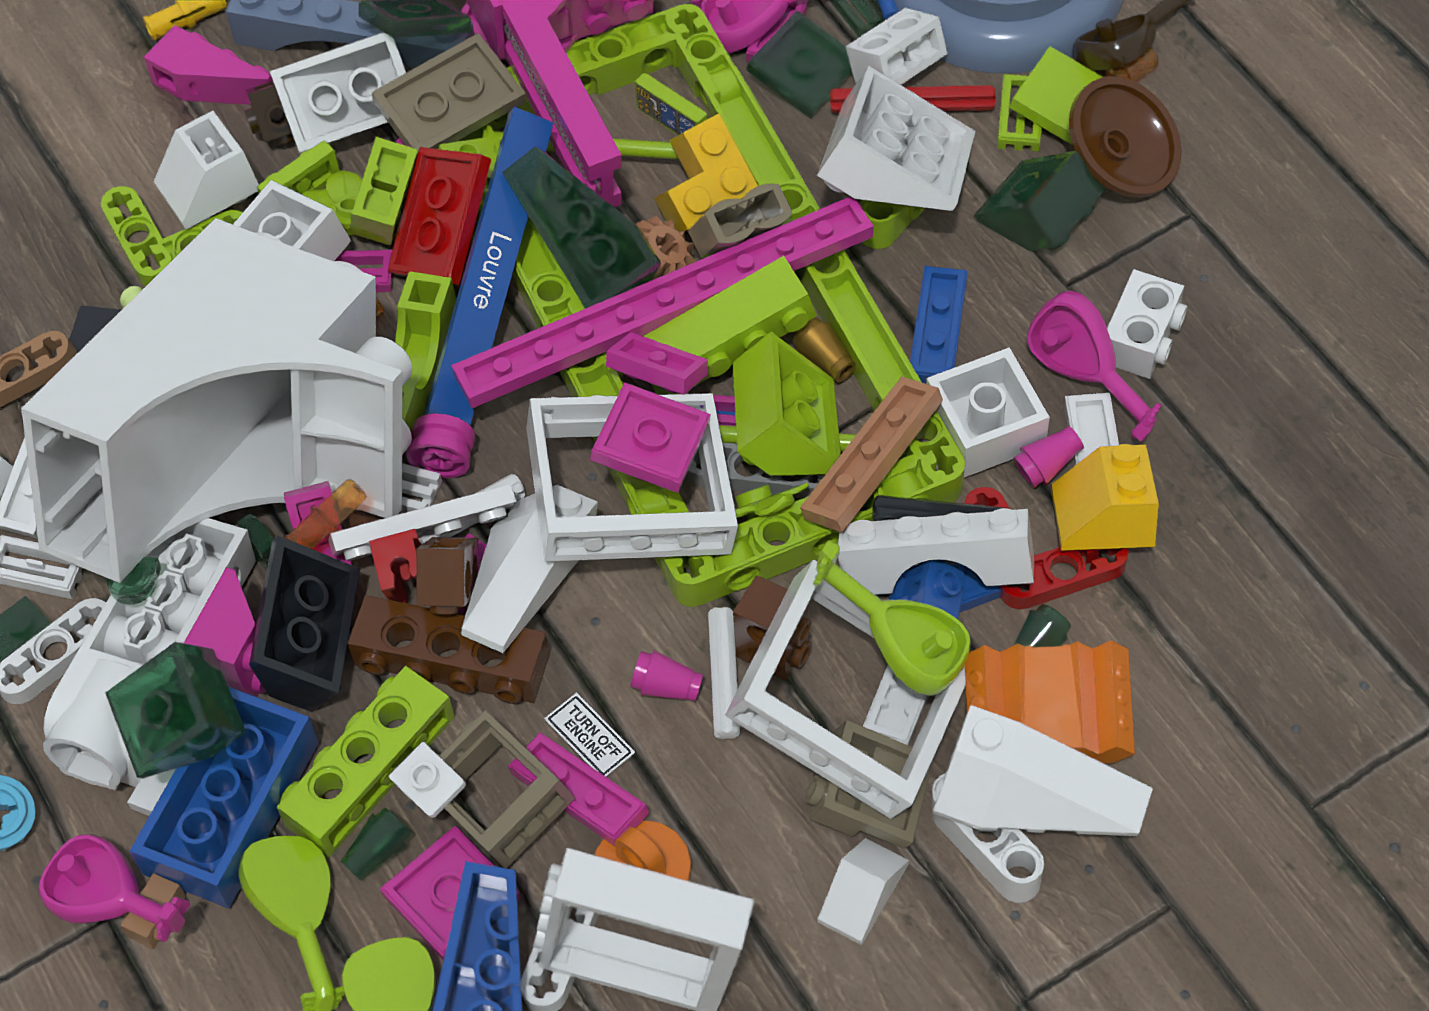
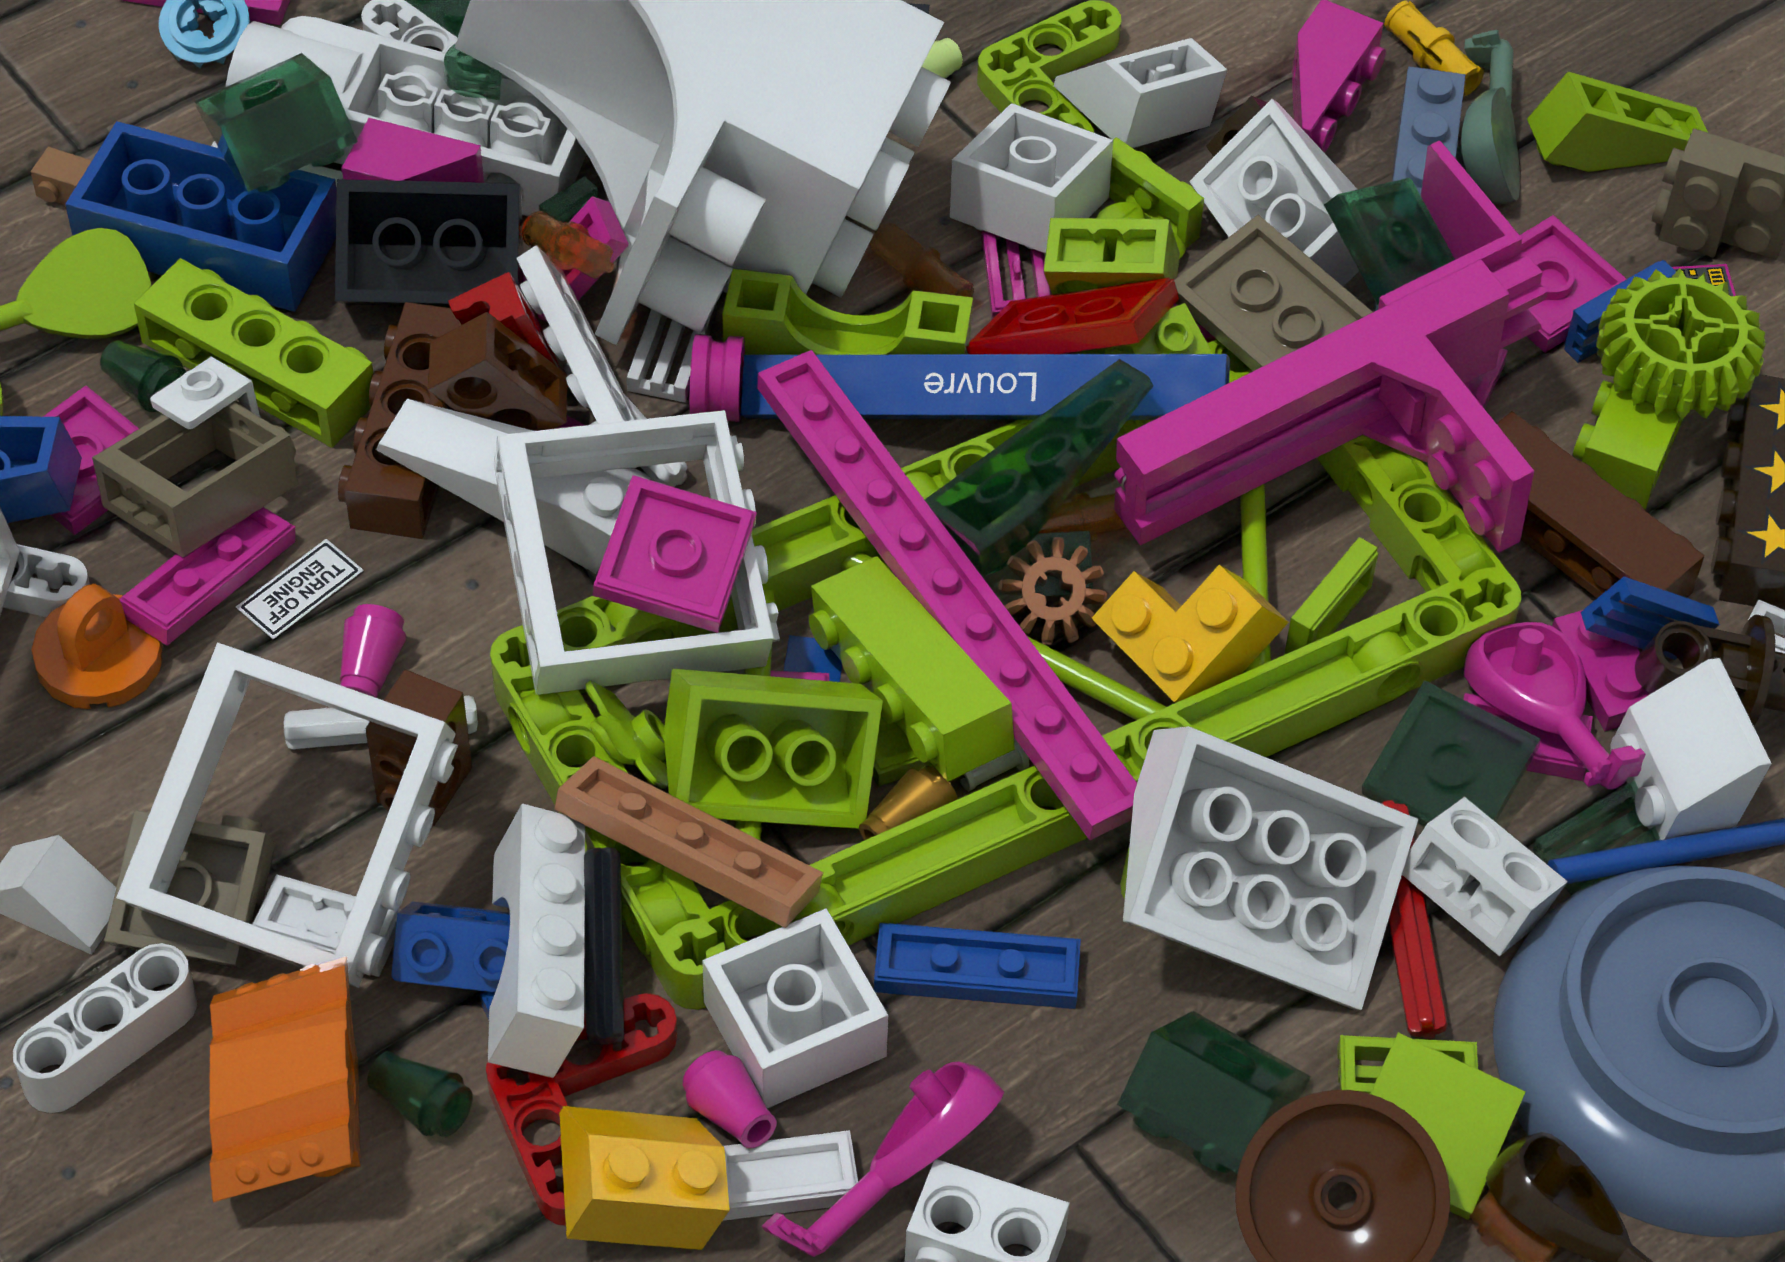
camera: 80 degrees right, 5 degrees down
(96, 883) = (86, 121): dark pink piece -> none
(656, 363) = (822, 572): dark pink plate -> none
(739, 219) = (1085, 655): dark tan brick -> none
(916, 639) = (351, 878): lime piece -> none
(1025, 780) = (146, 1051): white wedge -> none

